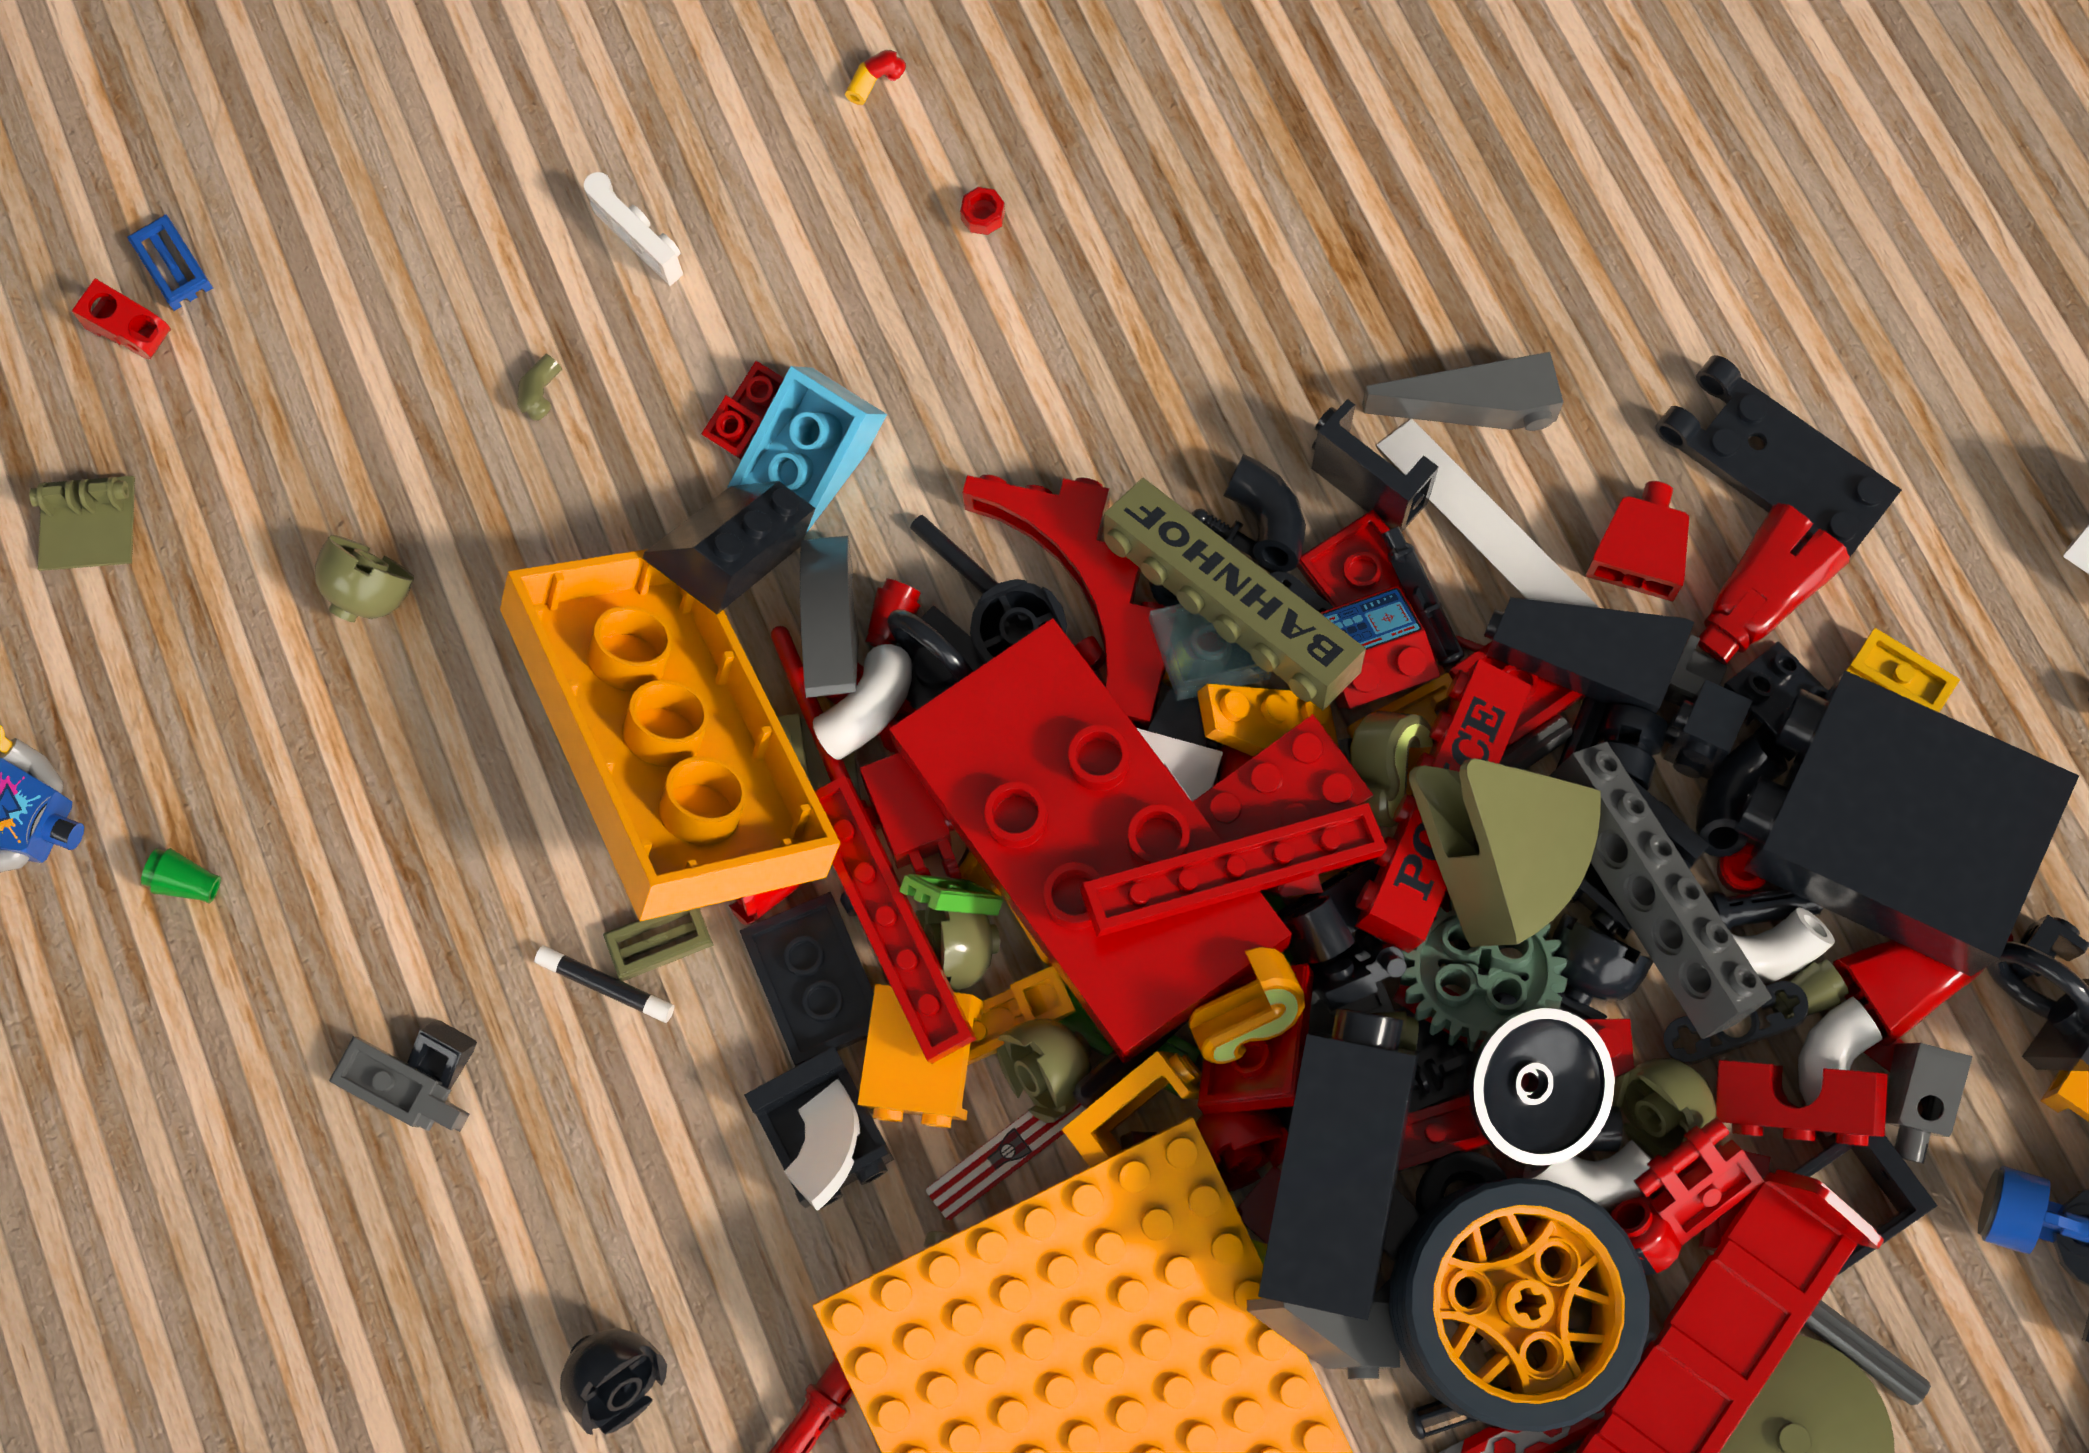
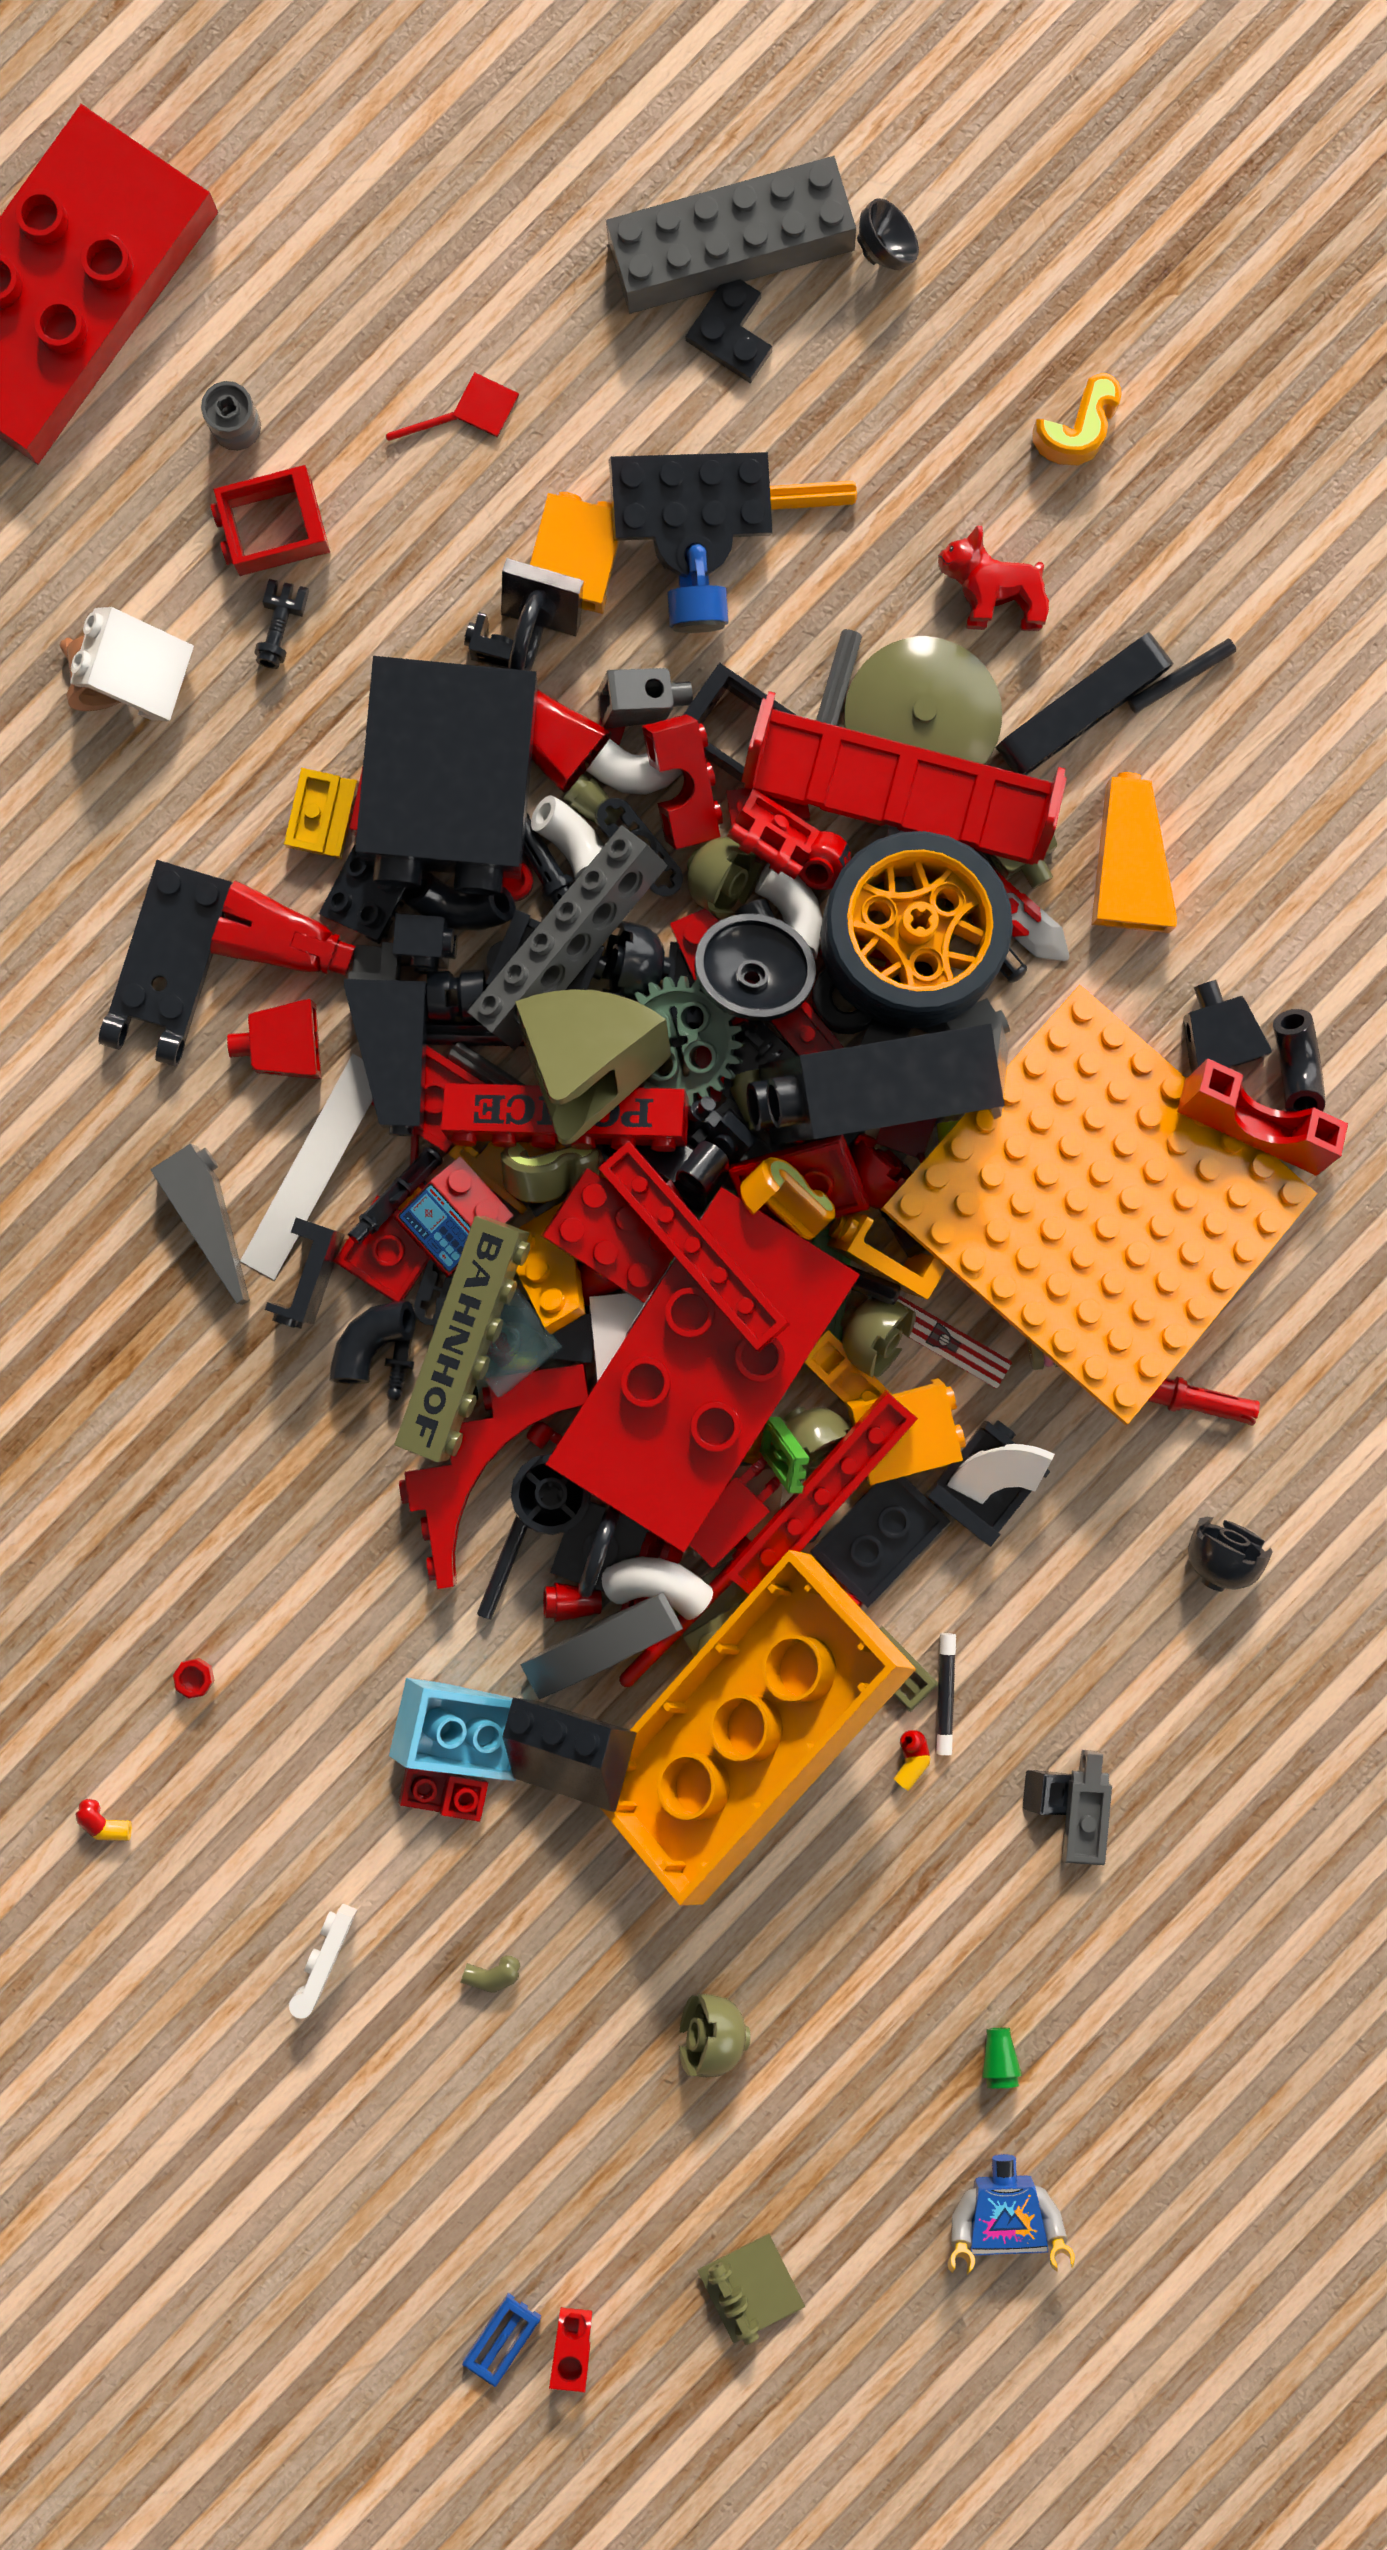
camera: 115 degrees left, 15 degrees up
(550, 921) = (916, 1758): none -> arm

